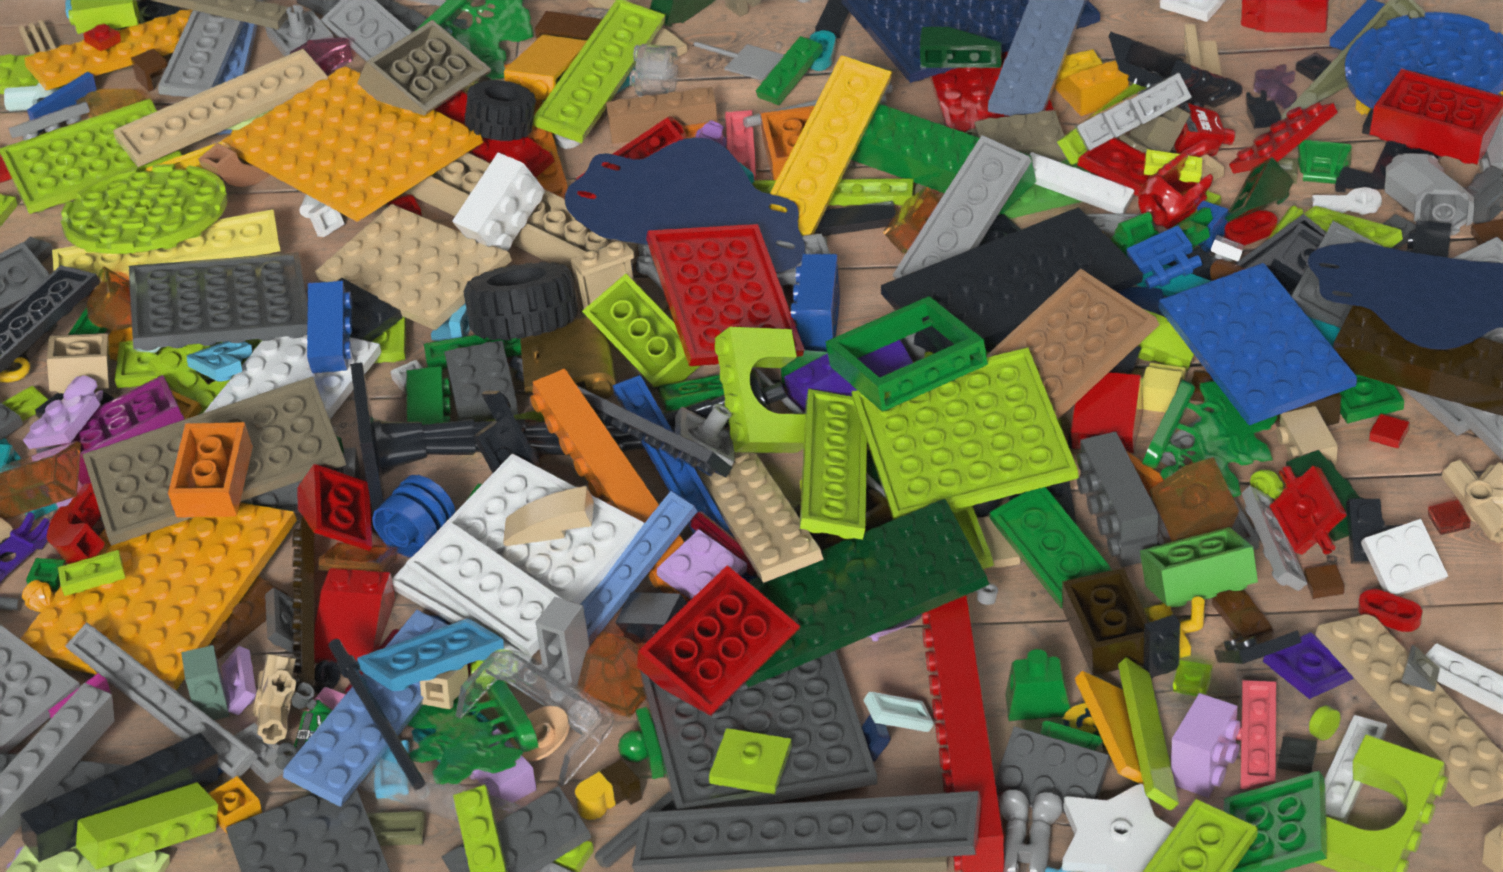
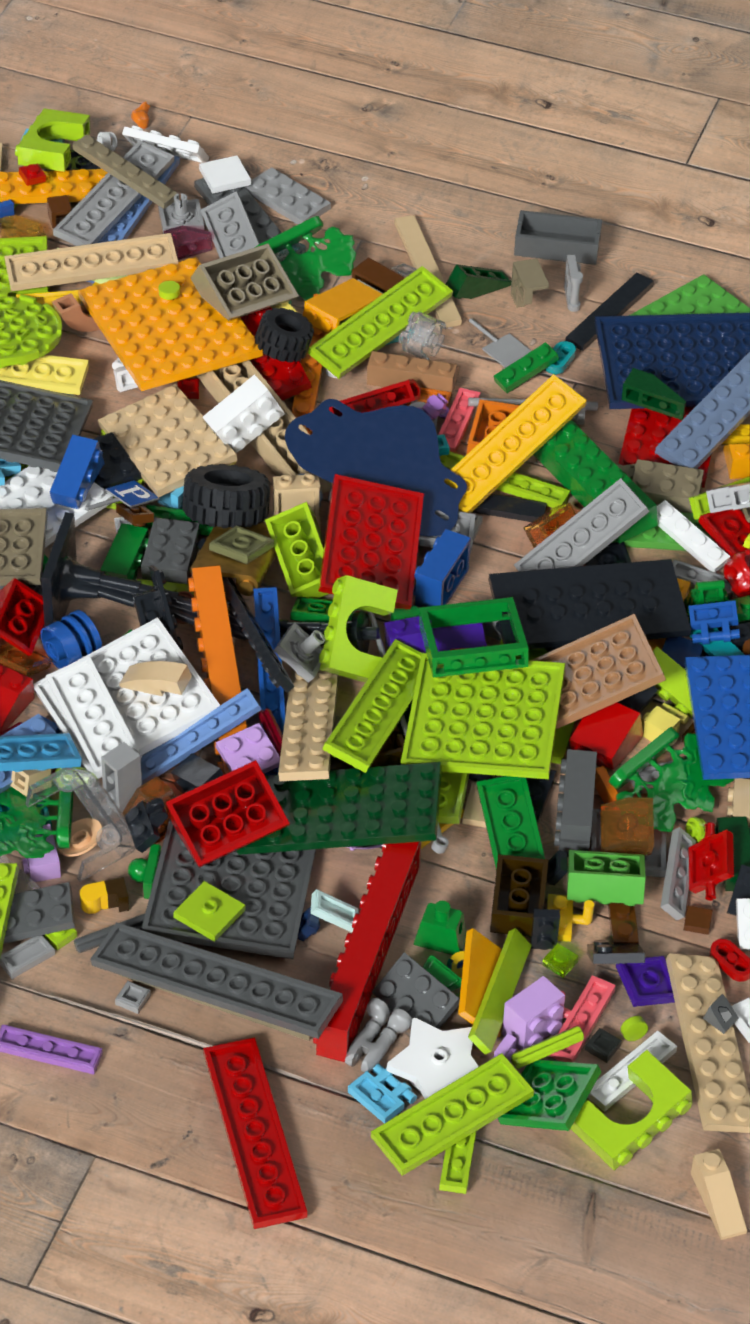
camera: 15 degrees right, 5 degrees up
(335, 105) = (169, 290): none -> lime tile
(400, 336) = (129, 493): none -> piece
(417, 354) = (136, 515): none -> reddish brown plate
(570, 344) = (241, 544): none -> olive tile
(616, 686) = (144, 821): none -> black hinge
(1135, 572) = (557, 867): none -> black tile
(1191, 792) = (507, 1047): none -> lavender plate
(1241, 775) = (547, 1047): none -> lime axle

